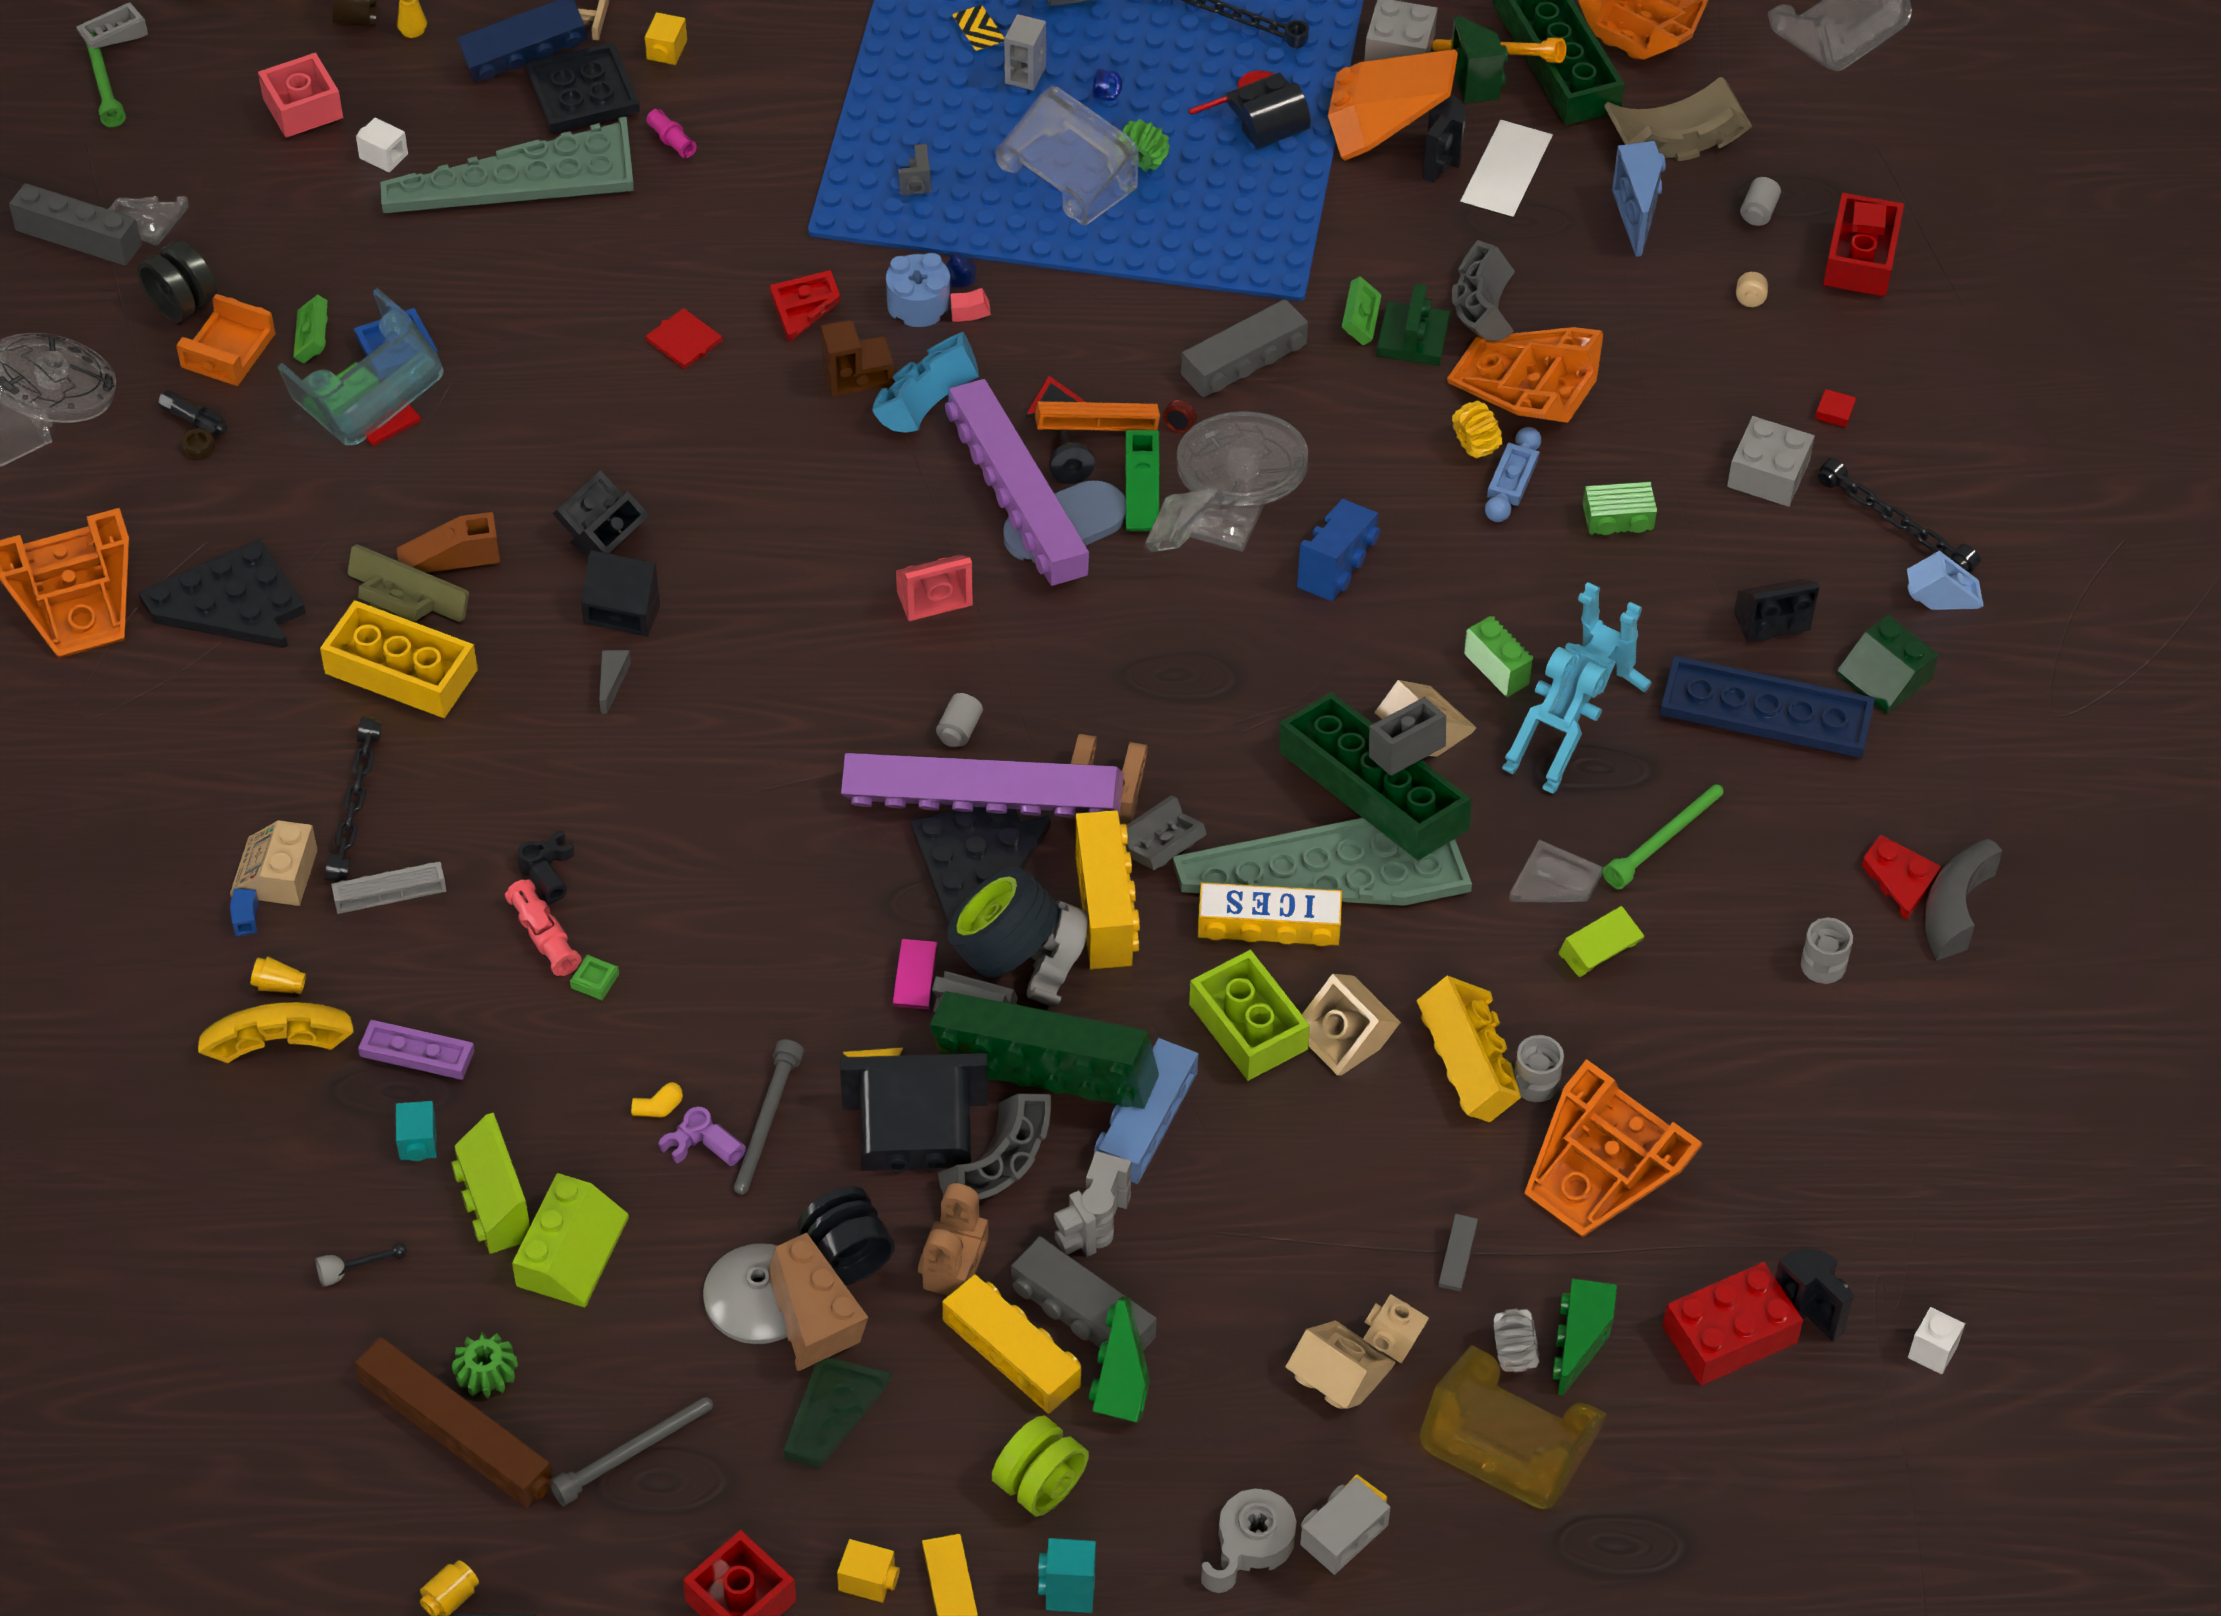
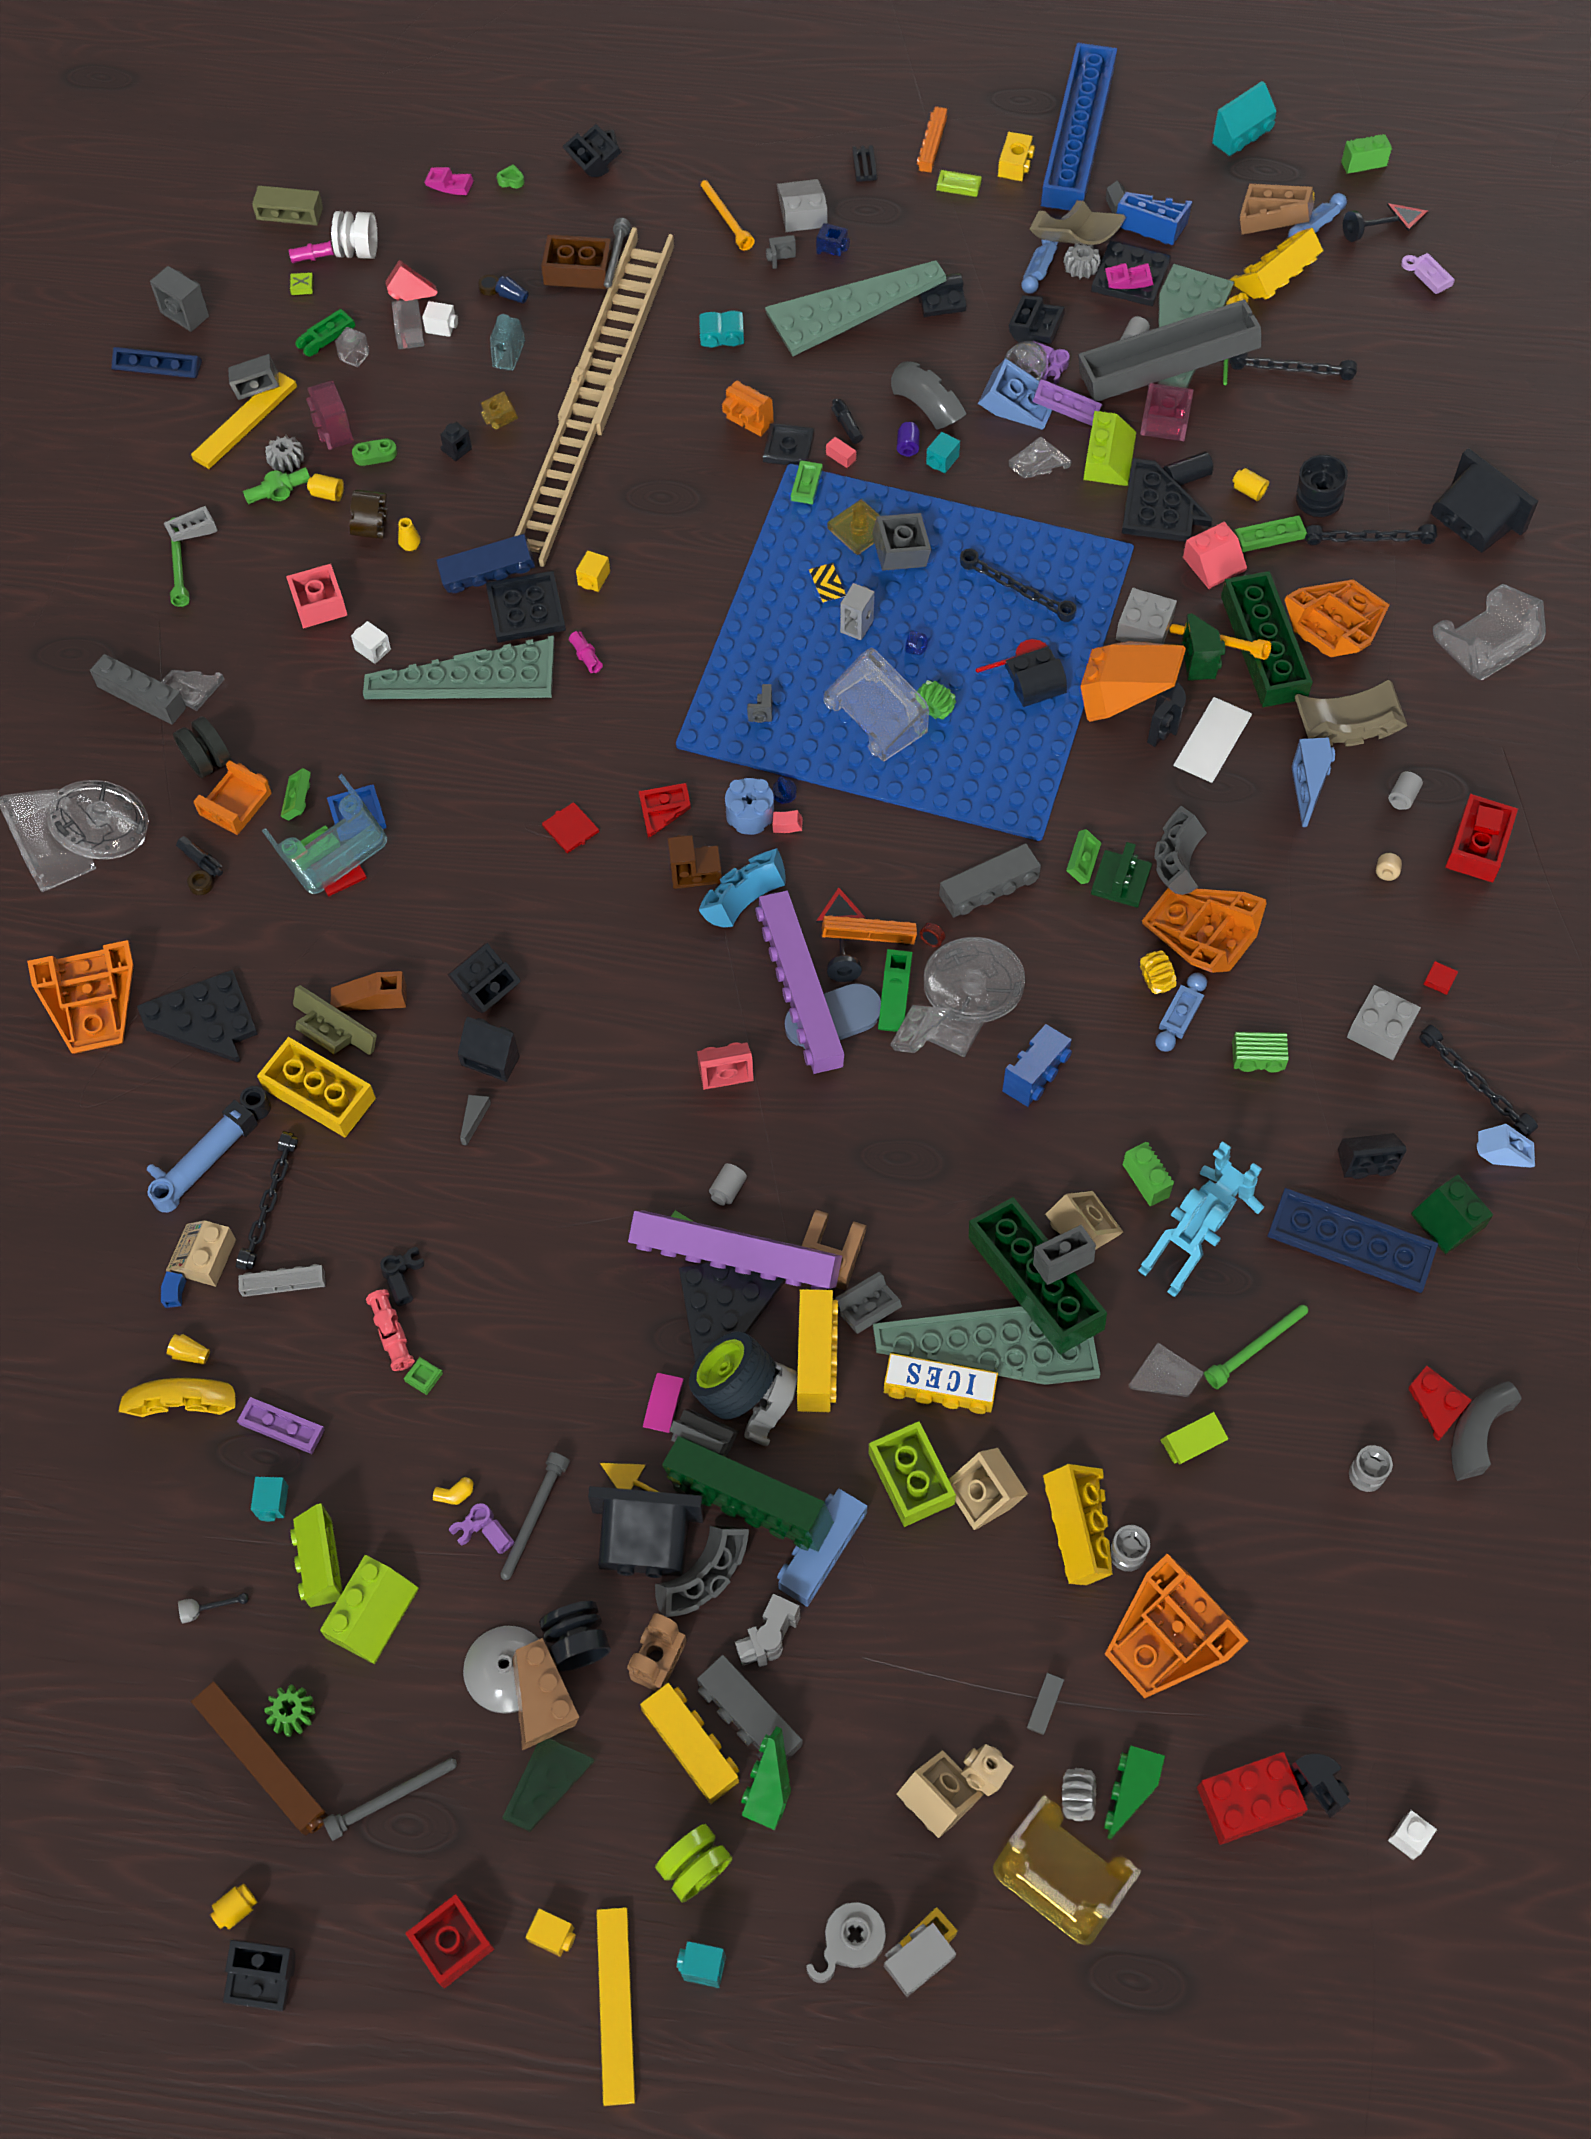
camera: 10 degrees right, 10 degrees up
(298, 710) = (237, 1121): none -> medium blue piece

